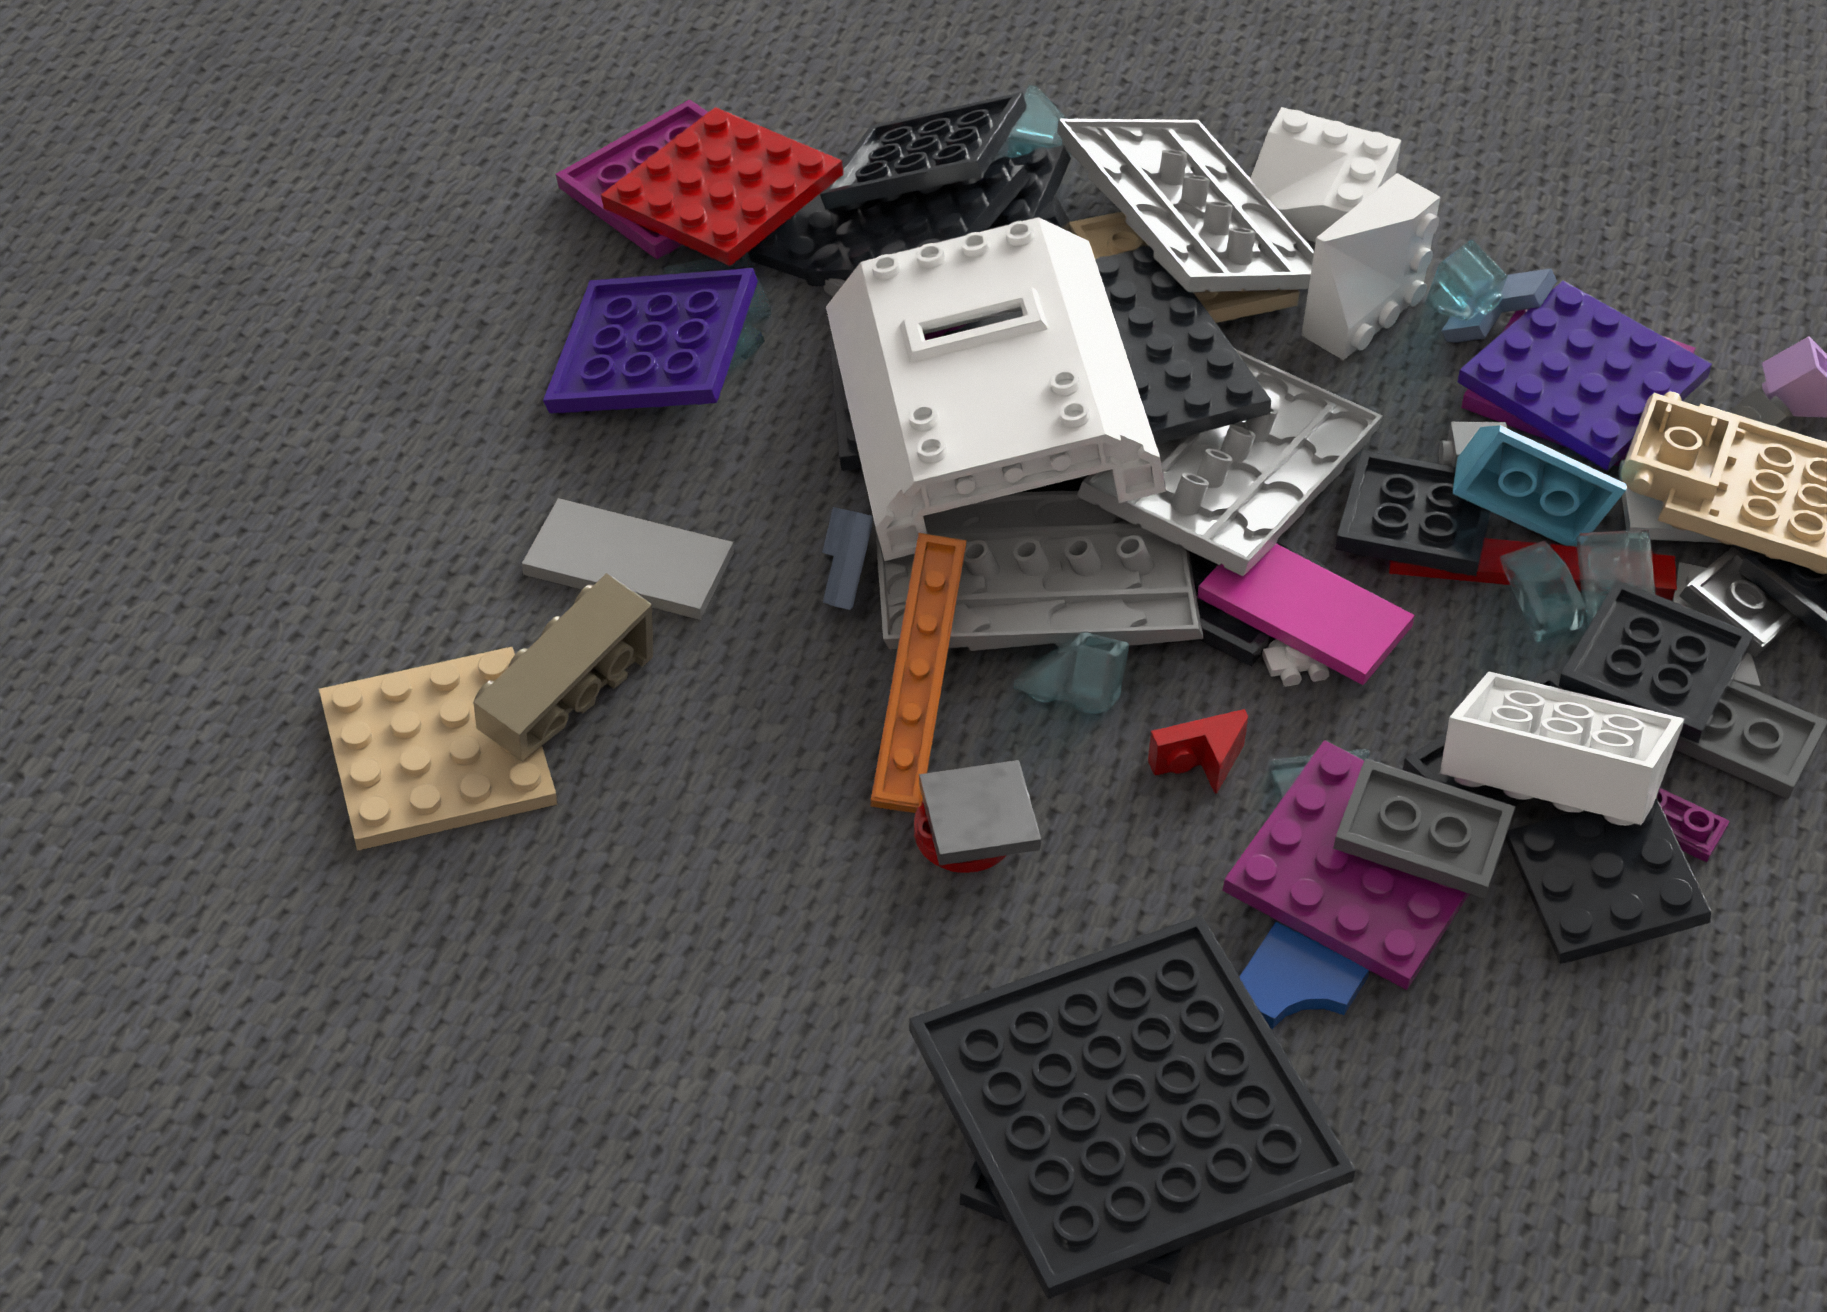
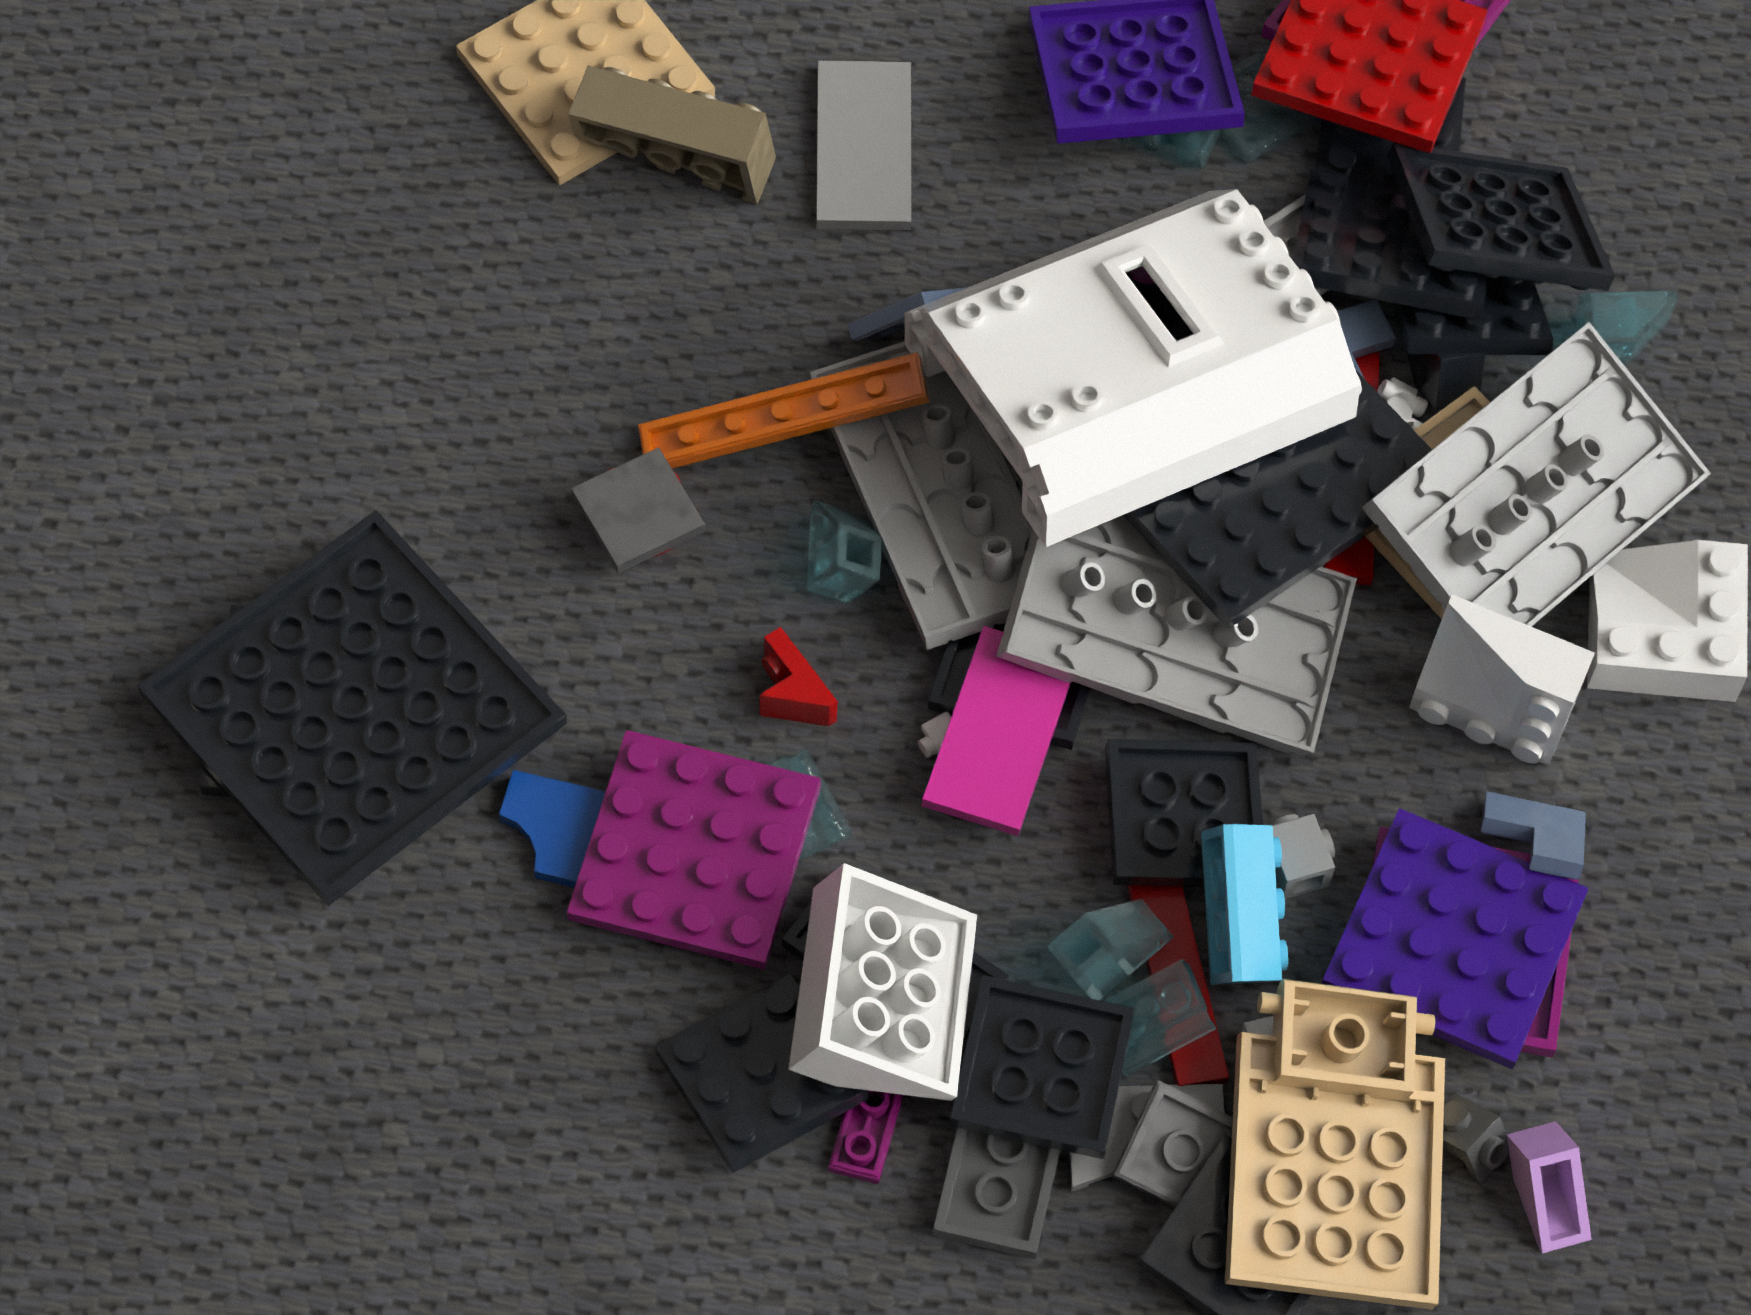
camera: 70 degrees right, 15 degrees up
(1424, 828) = (721, 878): dark grey plate -> none
(1466, 284) = (1530, 788): clear light blue slope -> none

